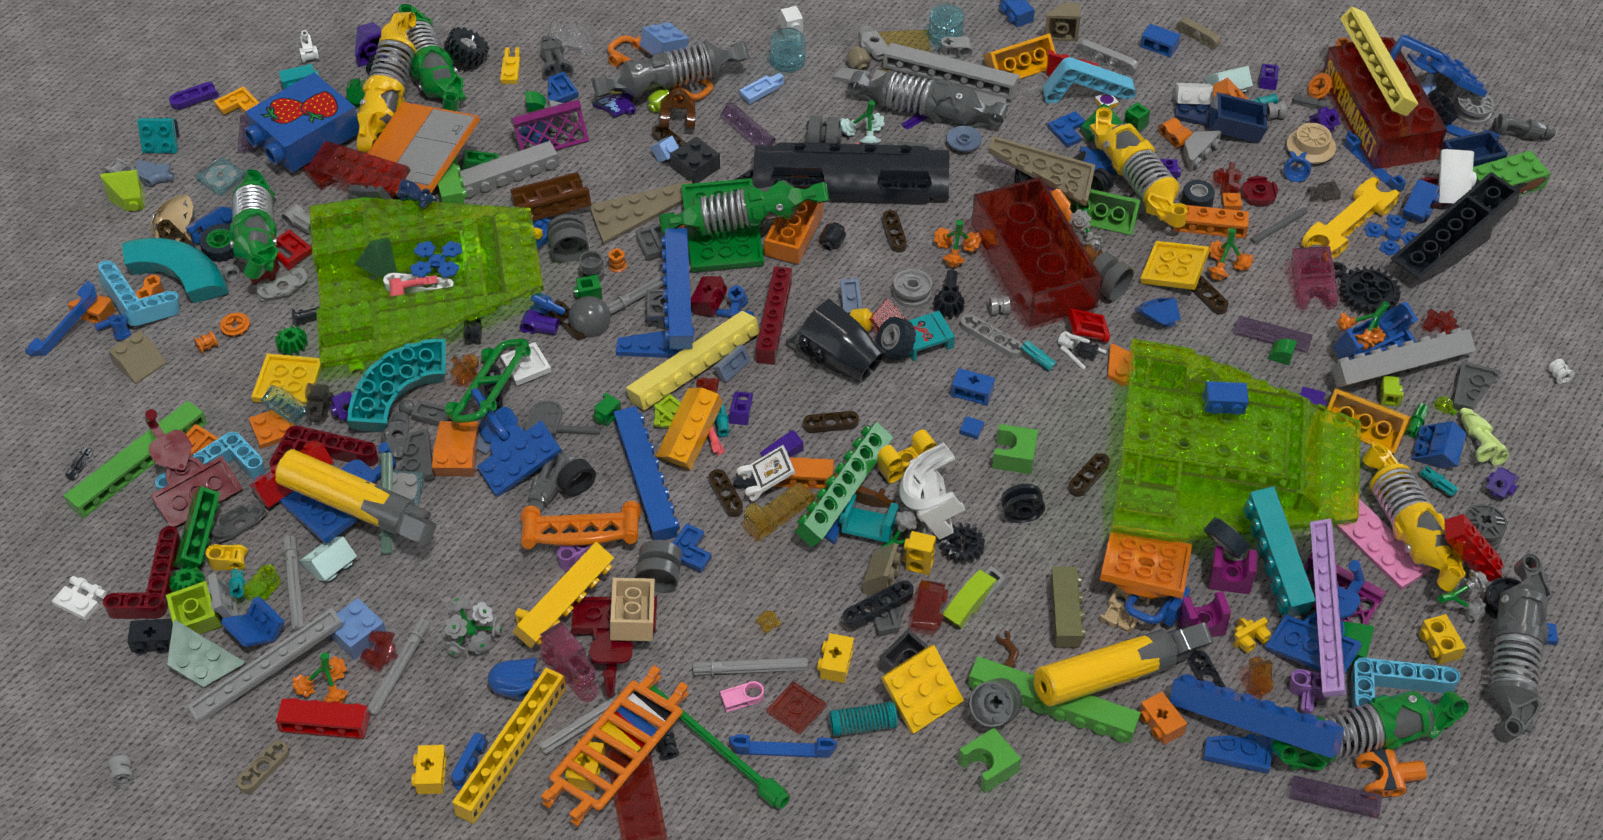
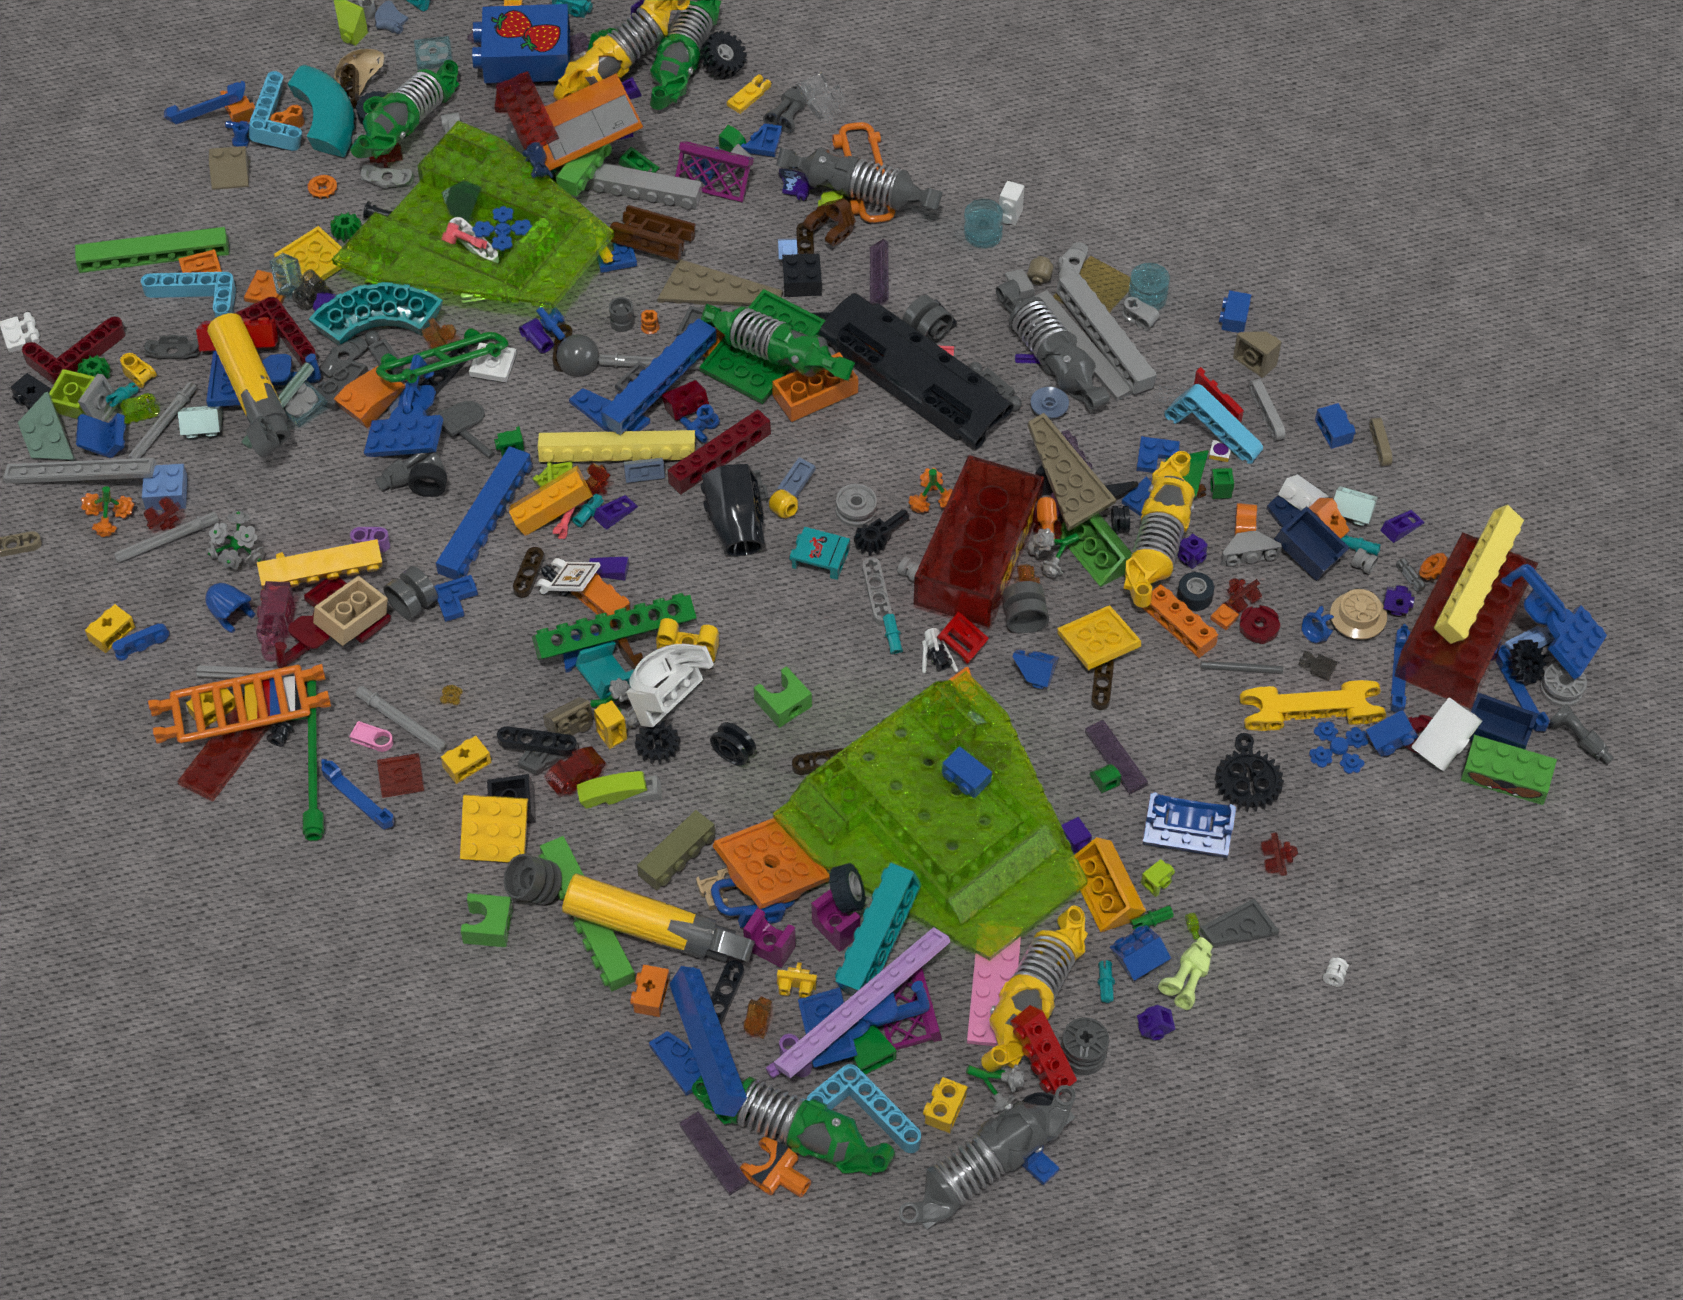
camera: 40 degrees right, 5 degrees up
(79, 463) = (114, 227): black axle -> none
(173, 452) = (168, 300): dark red plate -> none
(197, 528) = (133, 333): green brick -> none
(205, 342) = (287, 187): orange bush -> none
(219, 215) = (383, 85): blue plate -> none
(294, 246) = (425, 143): red plate -> none
(323, 718) = (78, 537): red brick -> none
(474, 332) = (480, 308): black wheel -> none
(509, 746) = (175, 650): yellow brick -> none
(567, 238) = (626, 276): dark grey wheel -> none
(588, 287) = (602, 331): green brick -> none
(625, 521) = (366, 495): orange piece -> none
(662, 38) = (889, 148): medium blue brick -> none
(761, 88) = (930, 244): light blue hinge -> none
(765, 520) = (545, 615): clear yellow beam -> none
(832, 236) = (841, 416): black head -> none
(836, 416) = (664, 565): dark brown beam -> none
(836, 723) = (453, 827): teal piece -> none
(873, 123) = (963, 328): light aqua plant -> none
(884, 312) = (804, 515): clear red piece -> none
(896, 225) = (899, 439): dark brown beam -> none
(896, 337) = (787, 537): black wheel -> none
(971, 427) = (773, 655): blue tile -> none
(972, 386) = (810, 622): blue brick -> none
(1014, 652) = (588, 862): reddish brown arm -> none
(1022, 58) = (1181, 360): light orange slope -> none
(1219, 252) = (1153, 652): orange plant -> none
(1314, 275) = (1209, 731): clear pink brick -> none
(1371, 335) = (1194, 818): orange plant -> none
(1402, 358) = (1196, 856): light grey brick -> none
(1458, 229) = (1384, 782): black slope -> none

